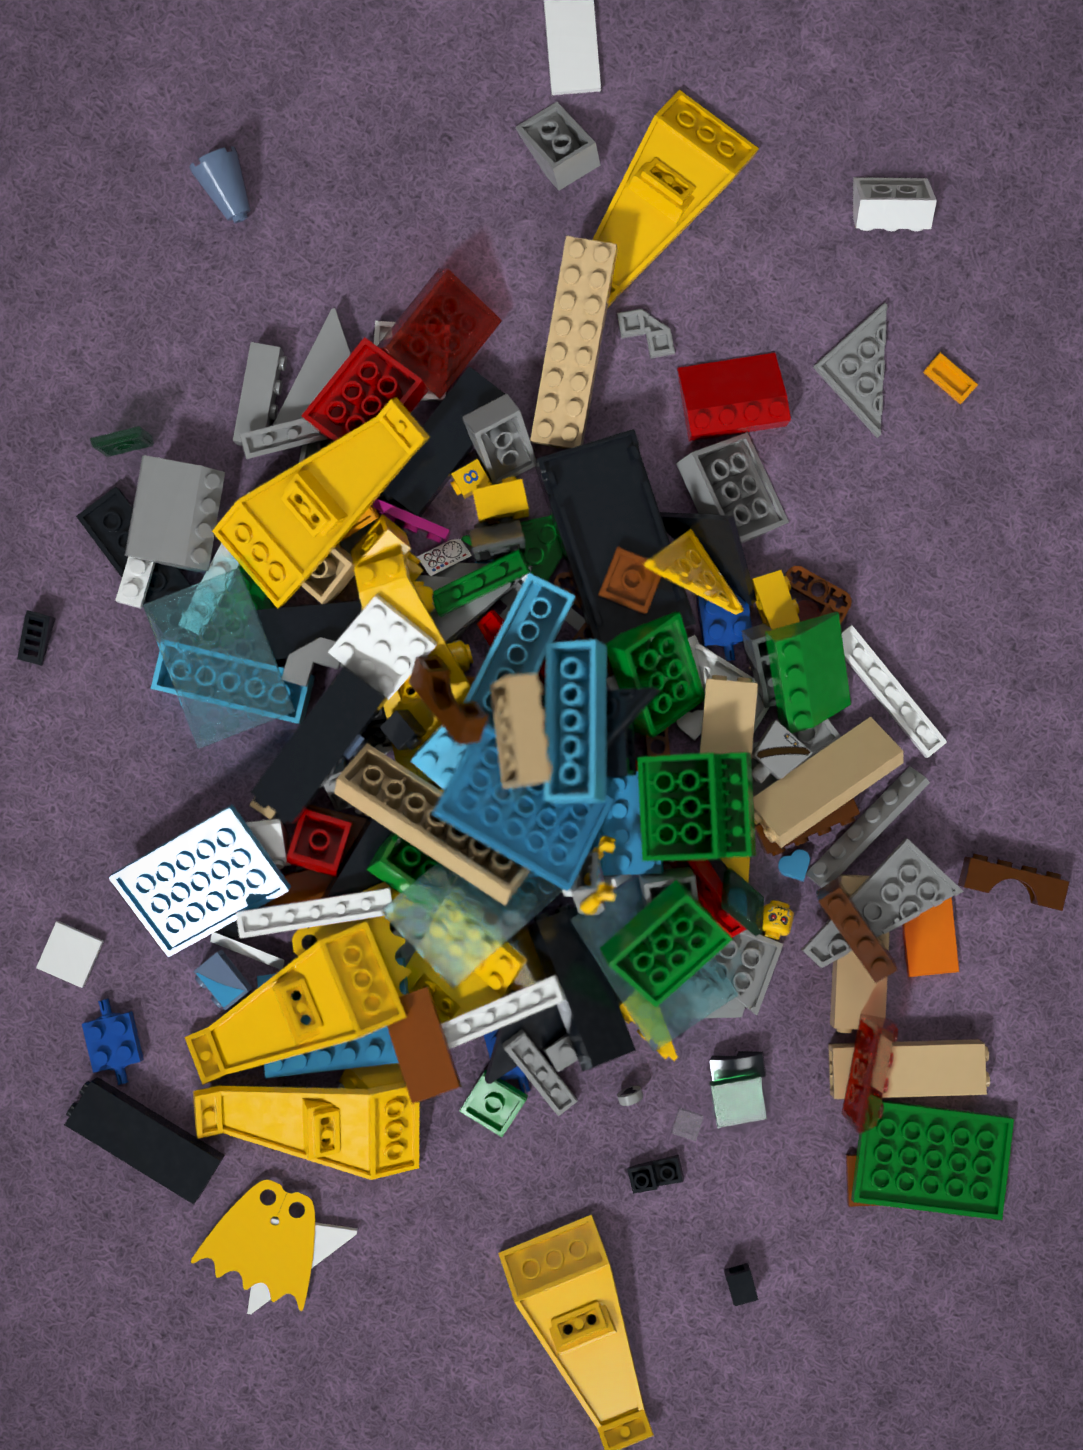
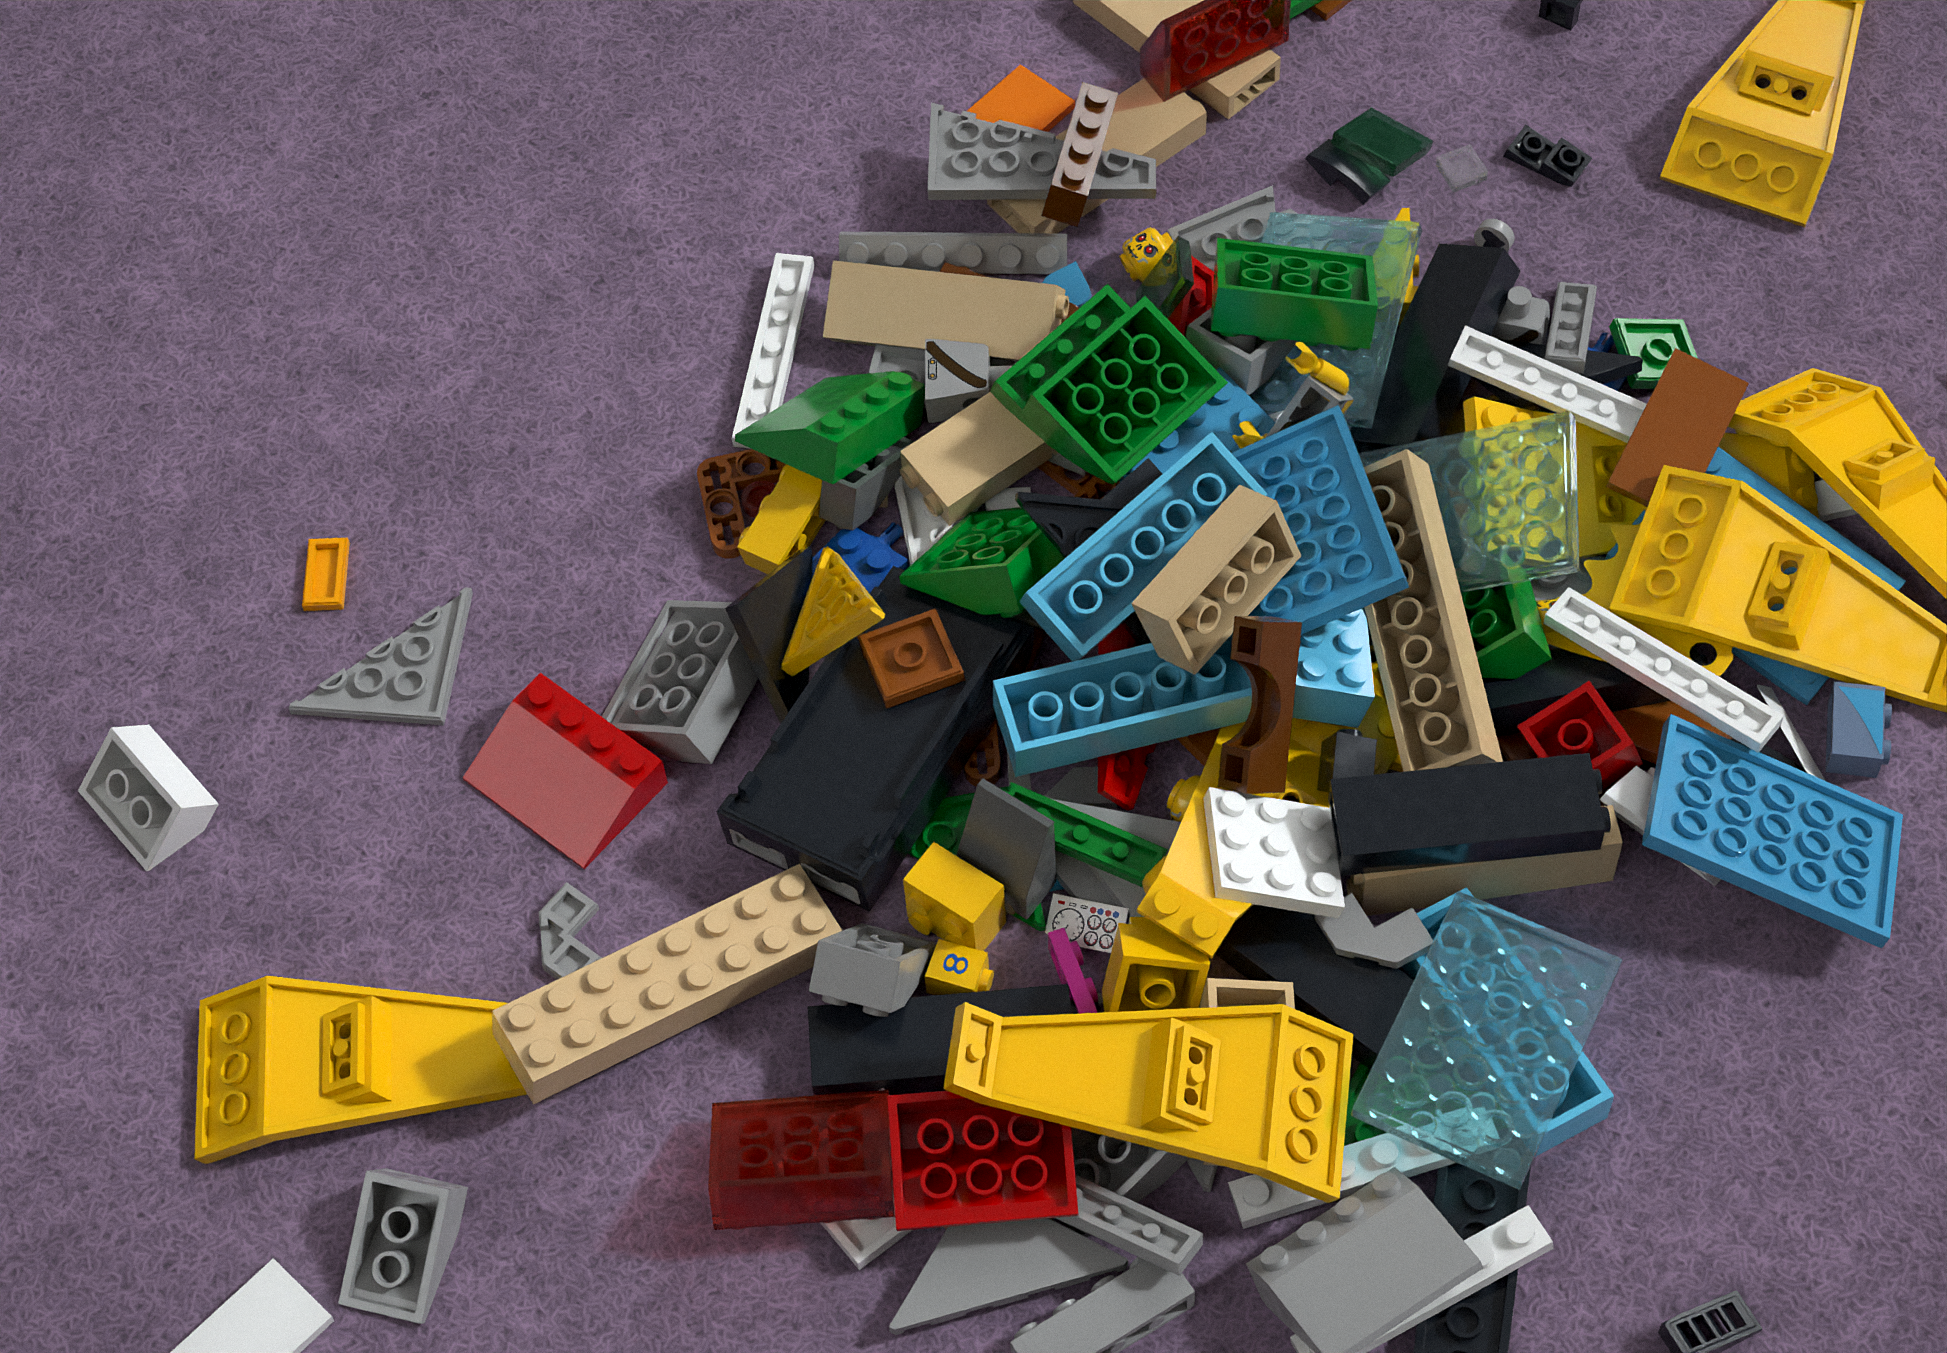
camera: 130 degrees left, 30 degrees down
(1043, 890) = (890, 116): reddish brown arch -> none

